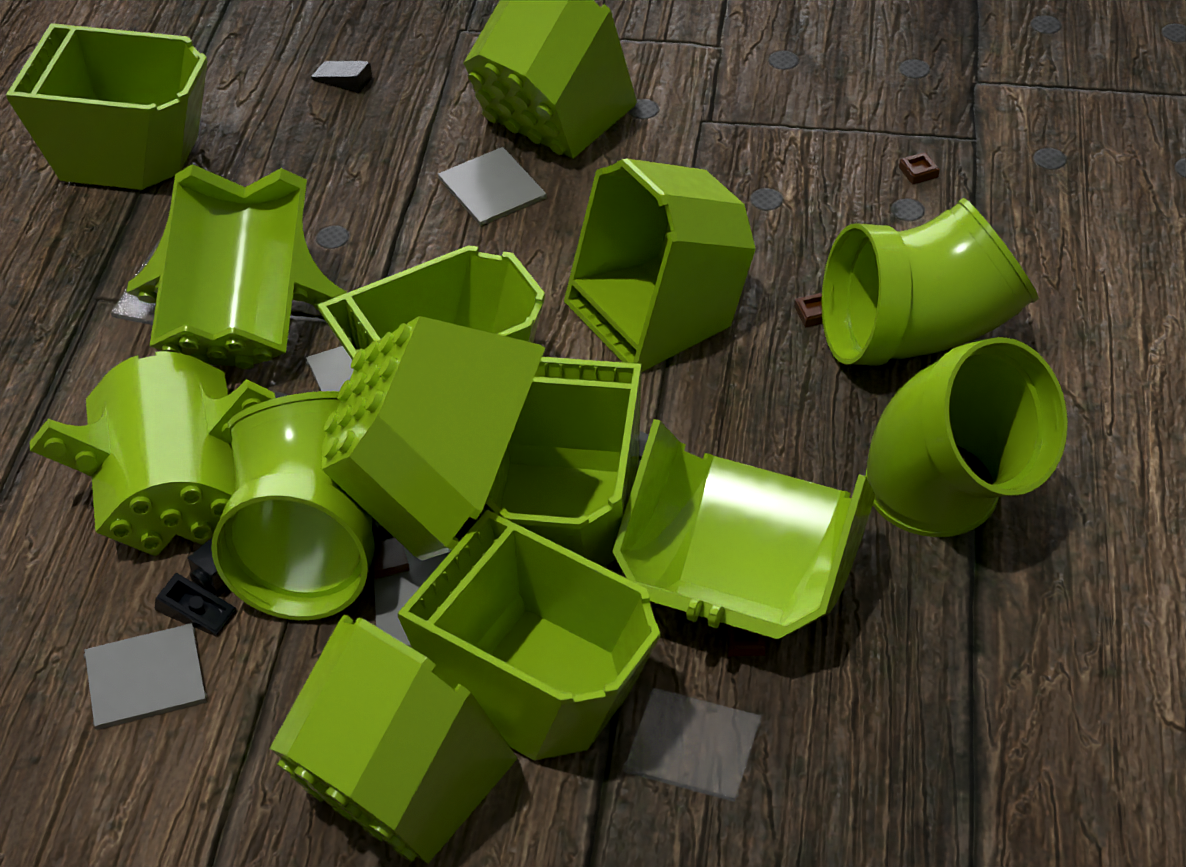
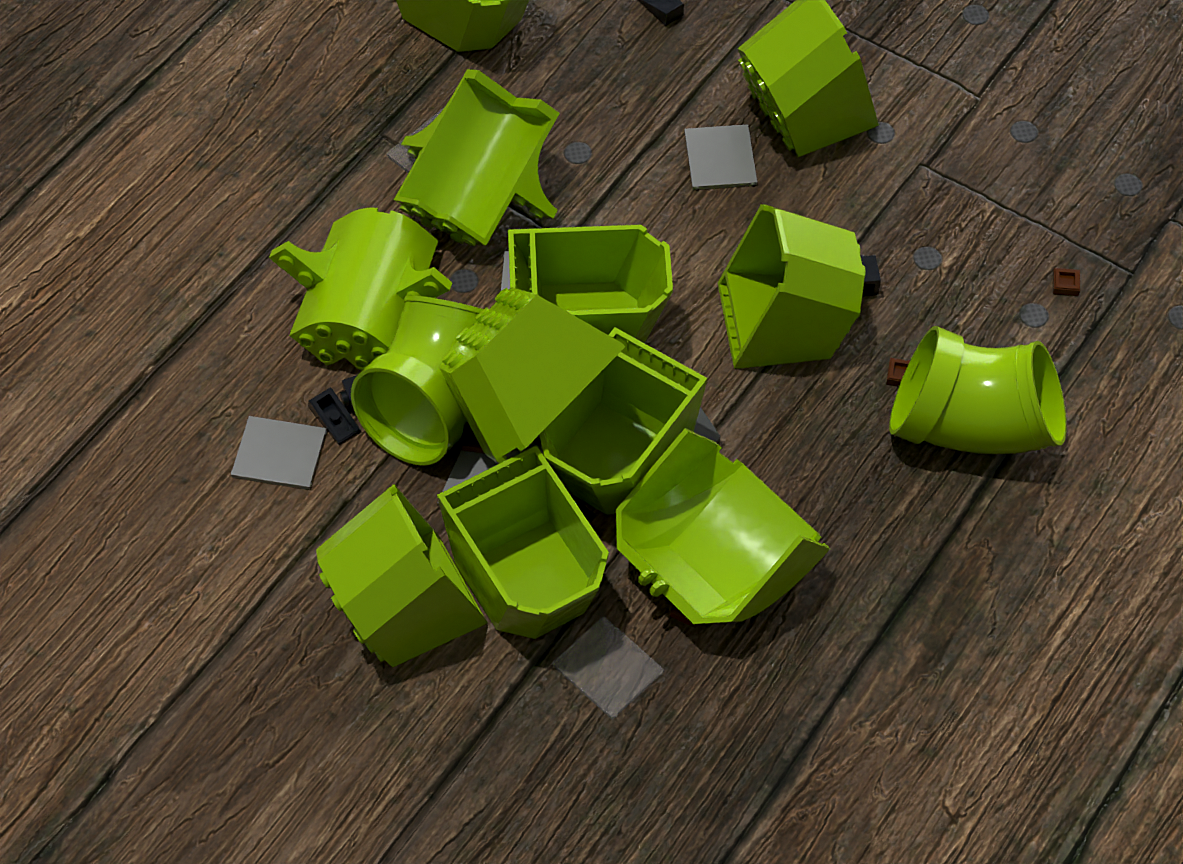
camera: 25 degrees right, 10 degrees up
(986, 398) = (942, 502): lime cylinder -> none

